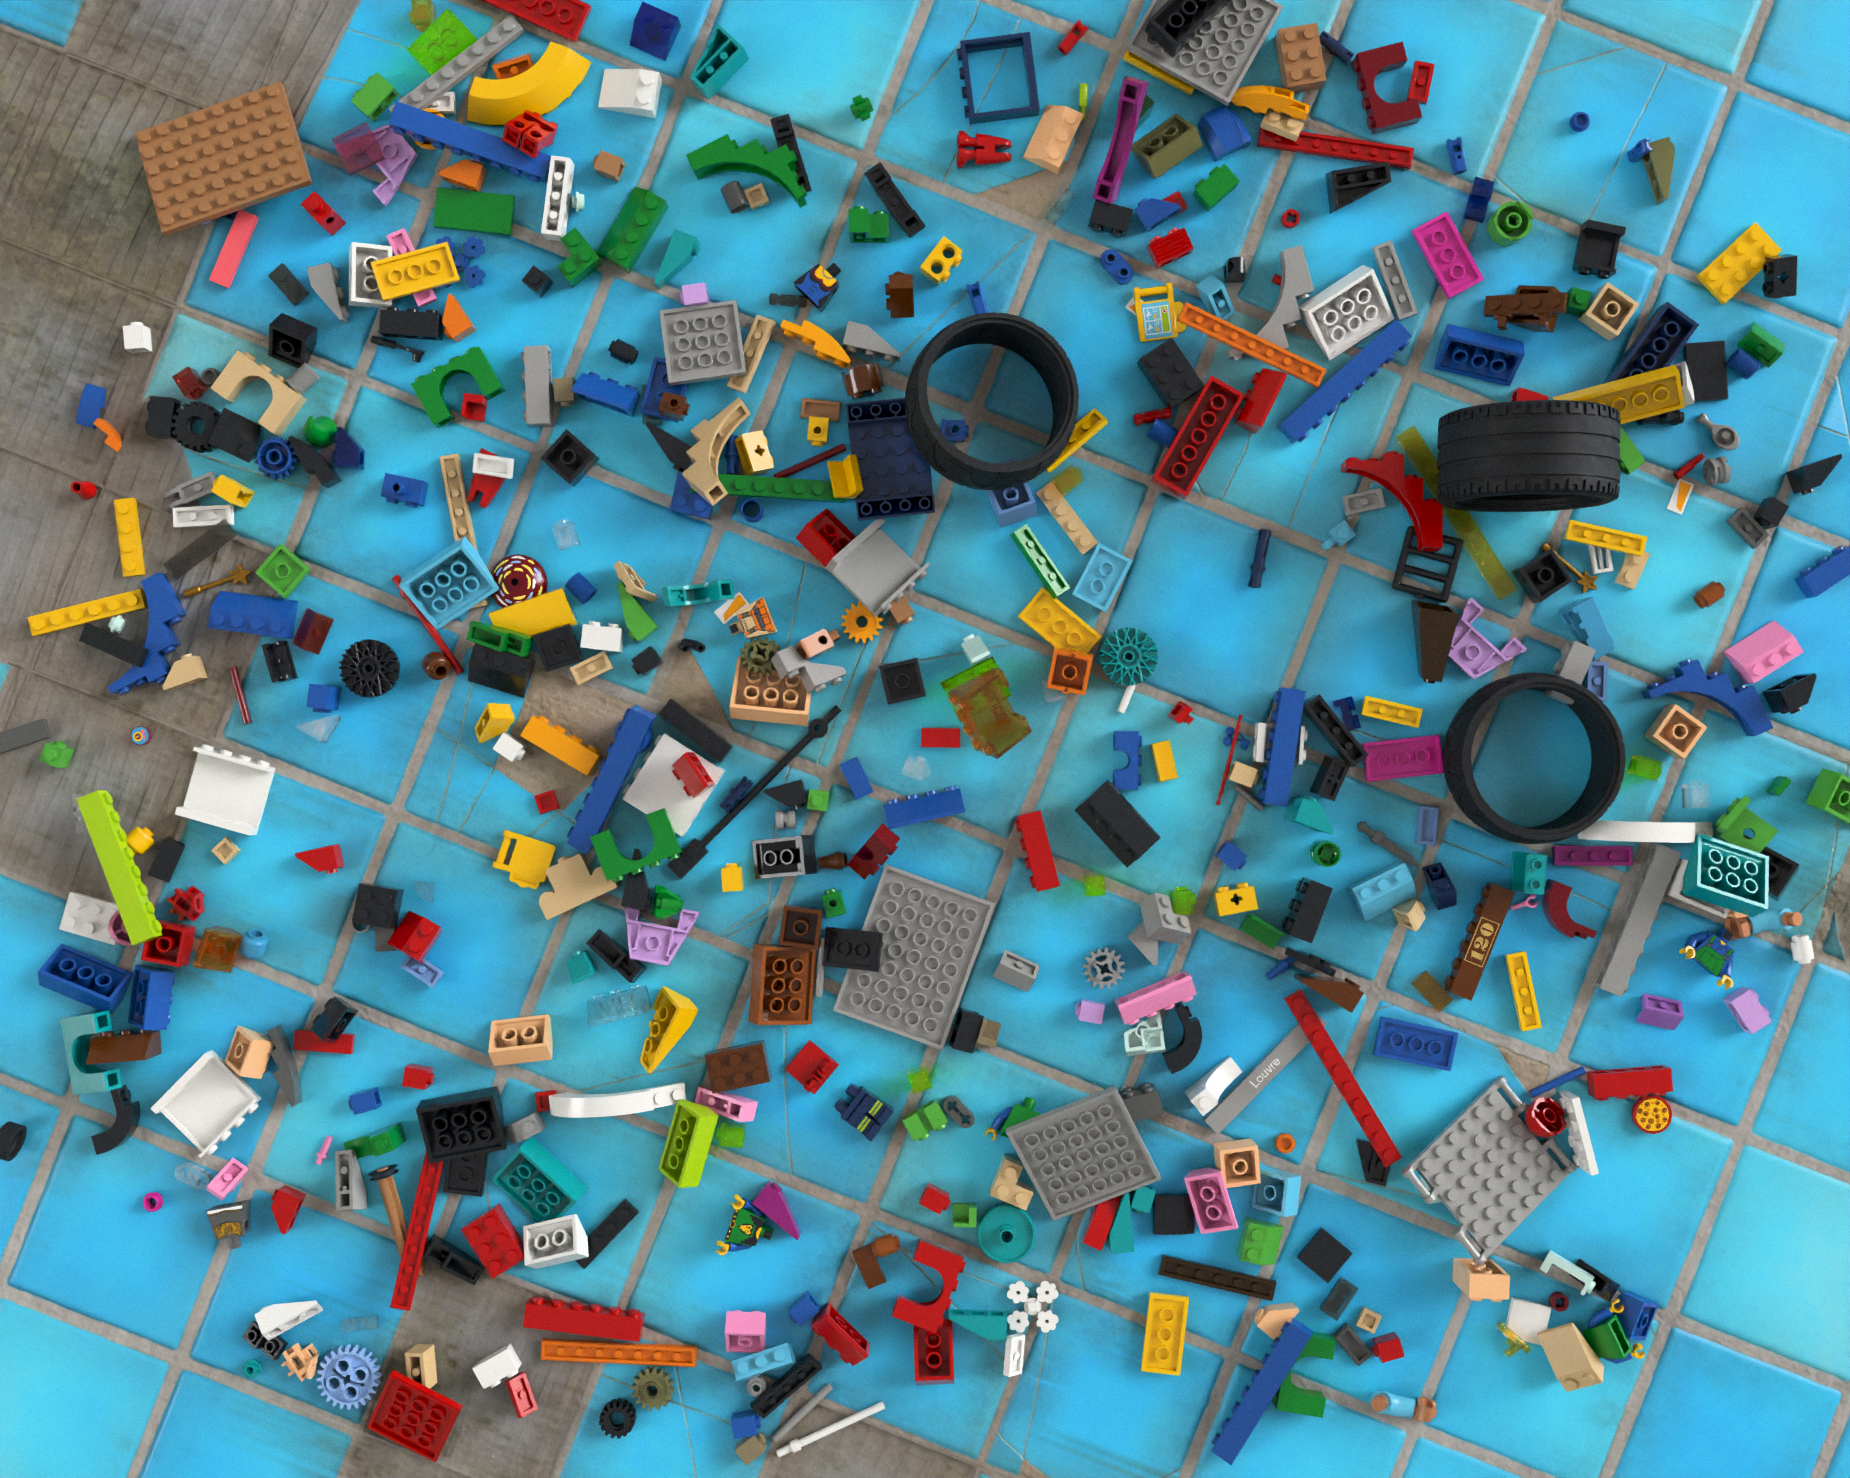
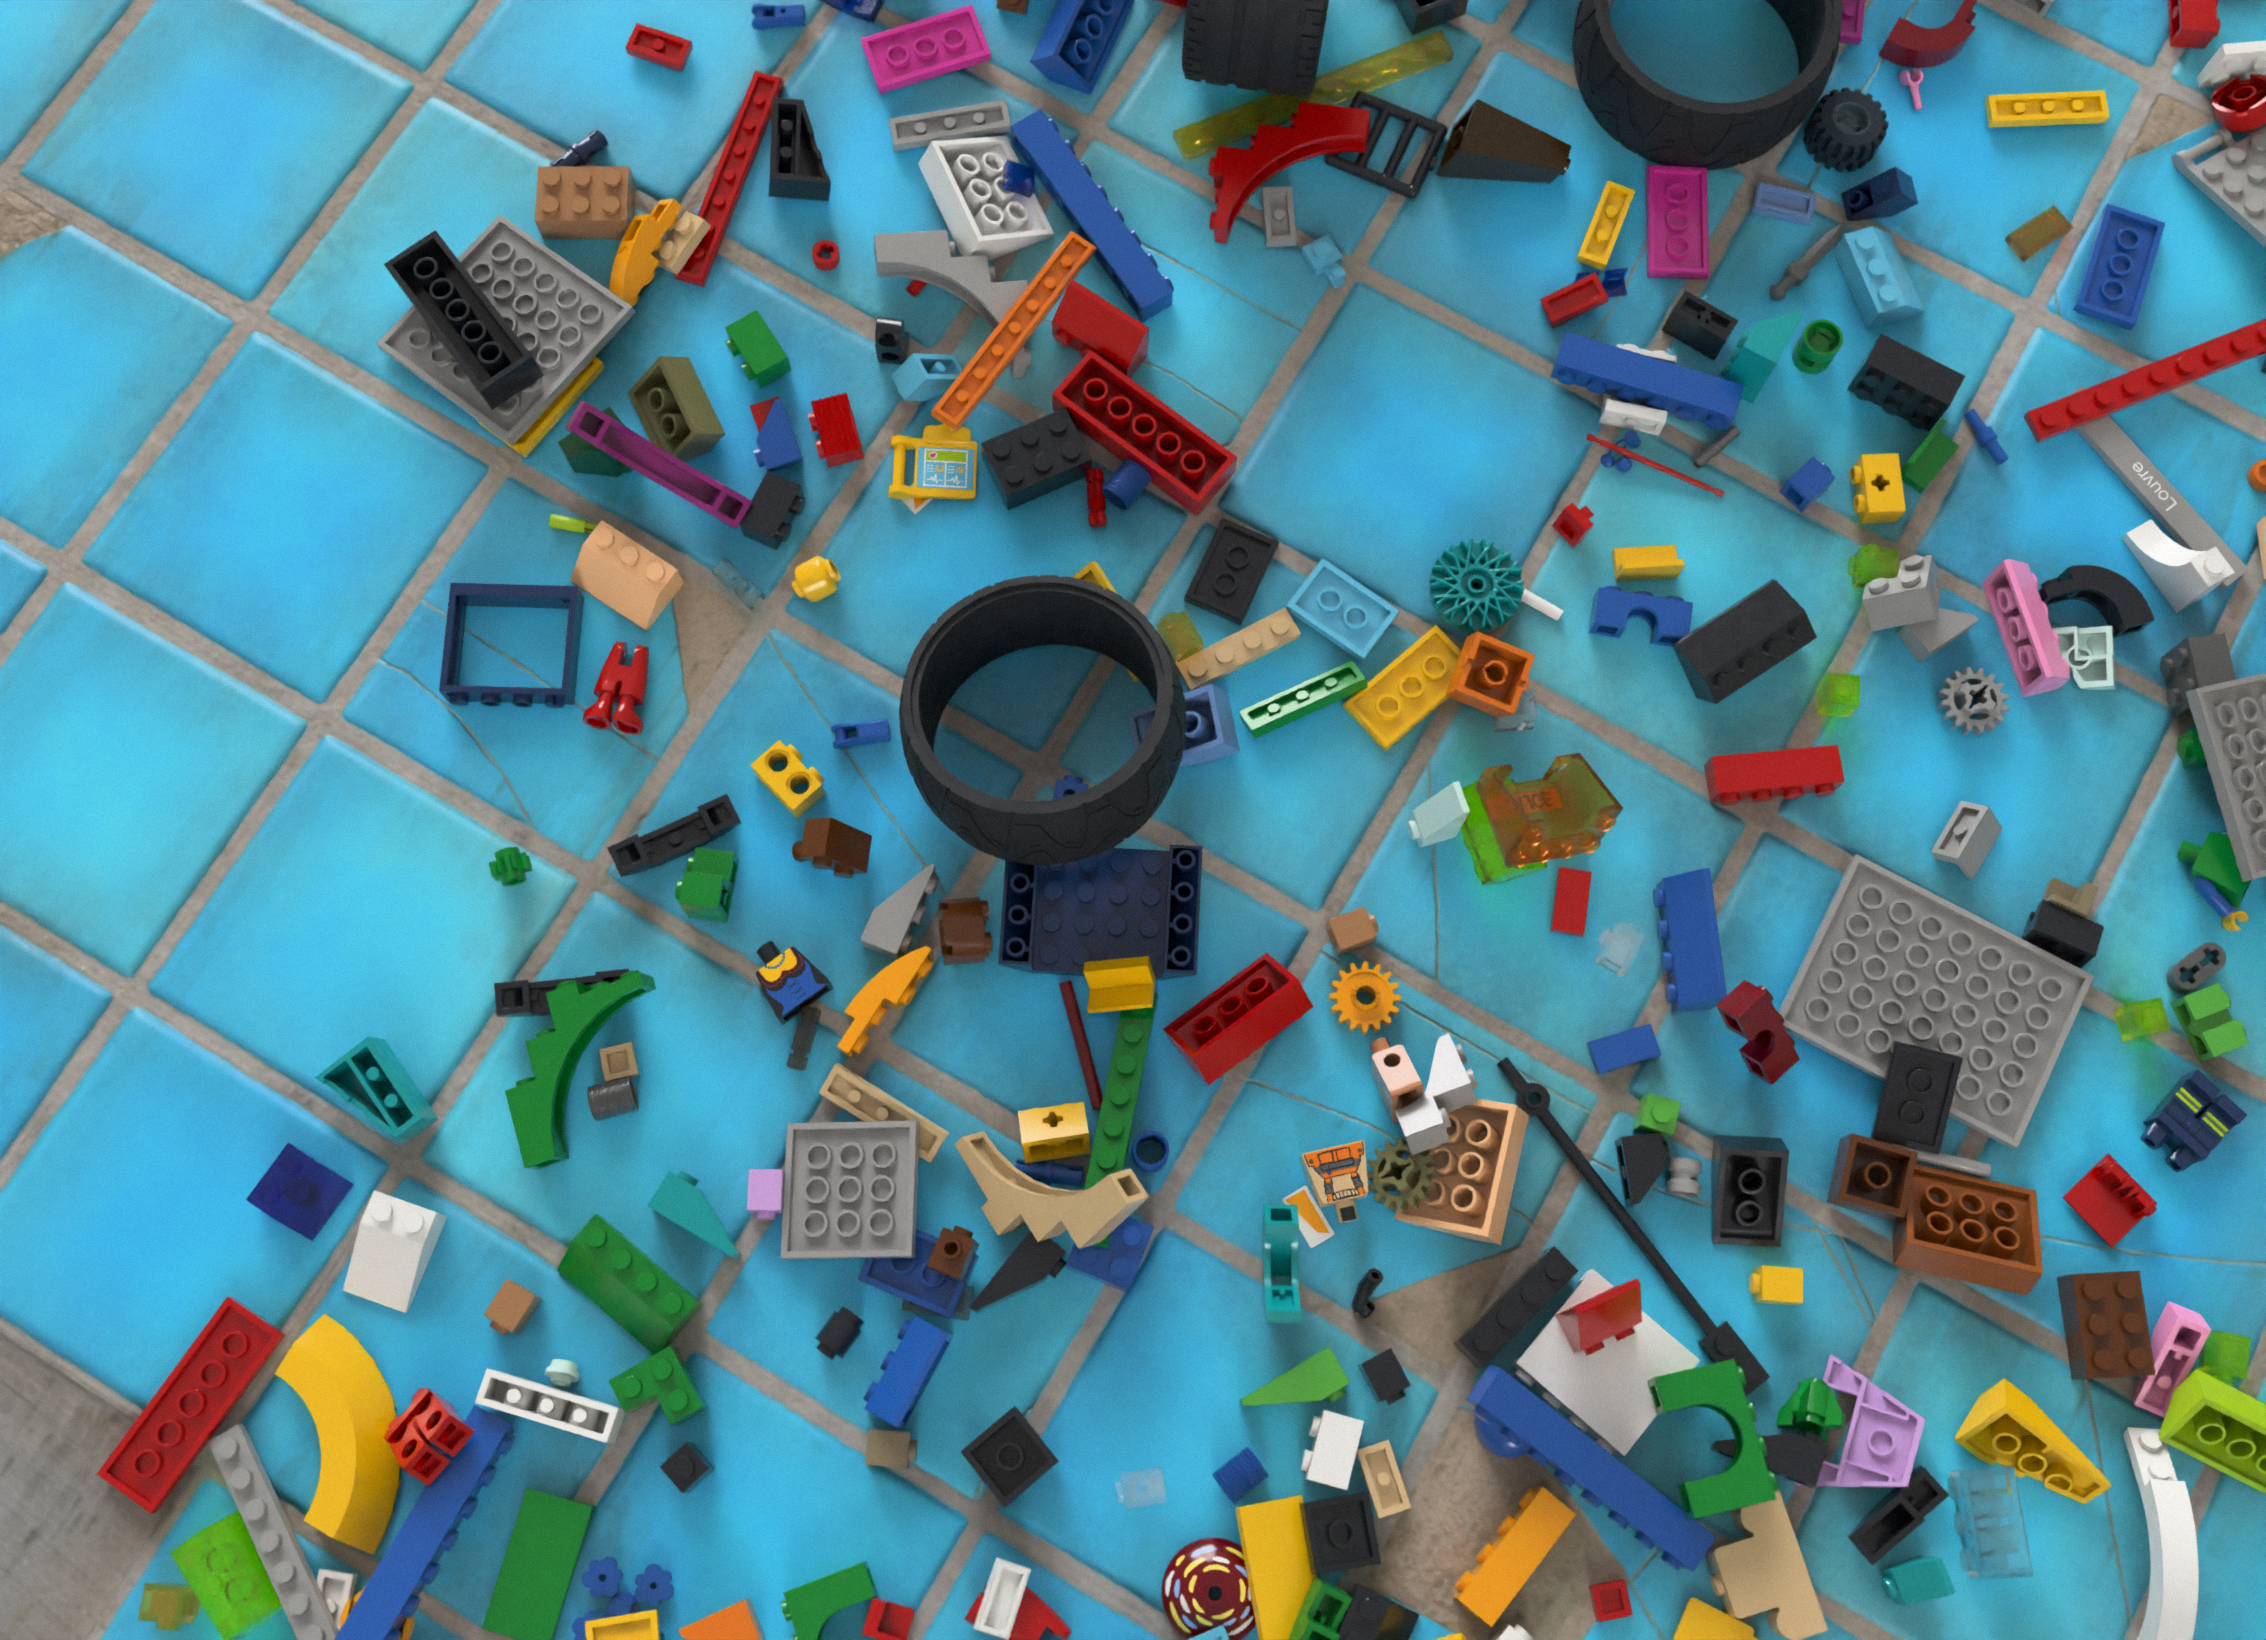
camera: 85 degrees left, 15 degrees down
(465, 174) = (470, 1571): orange slope -> none
(512, 66) = (300, 1453): orange slope -> none
(538, 386) = (871, 1496): light grey brick -> none
(632, 581) = (1242, 1378): tan wing -> none
(736, 794) = (1631, 1256): dark blue pin -> none
(818, 431) = (1033, 1020): yellow brick -> none
(821, 409) = (996, 1013): medium nougat tile -> none
(833, 861) = (1762, 1108): reddish brown cone -> none
(833, 903) = (1834, 1118): green brick -> none
(876, 569) = (1285, 954): light grey panel -> none
(902, 681) = (1473, 944): black brick -> none
(1070, 253) = (816, 579): none -> yellow head
(1071, 38) = (474, 526): red bar -> none
(1090, 1011) = (2042, 732): lavender brick -> none
(1116, 266) = (852, 516): blue plate -> none
(1117, 507) = (1231, 571): none -> black tile
(1223, 132) = (673, 327): blue slope -> none
(1242, 774) = (1681, 447): tan brick -> none
(1257, 567) = (1344, 374): dark blue pin -> none
(1311, 961) = (1988, 385): black wing -> none
(1334, 696) = (1574, 300): none -> red tile
(1334, 731) = (1630, 303): black brick -> none
(1342, 992) = (2034, 357): reddish brown slope -> none
(1362, 331) = (1018, 178): none -> clear blue tile
(1381, 114) = (692, 108): dark red arch -> none
(1410, 914) = (1925, 240): tan slope -> none
(1472, 650) = (1531, 96): lavender wing -> none
(1479, 940) = (1970, 156): reddish brown brick -> none
(1484, 859) = (1845, 129): none -> black wheel
(1528, 872) = (1875, 66): teal panel -> none
(1557, 1081) = (2185, 85): blue bar -> none

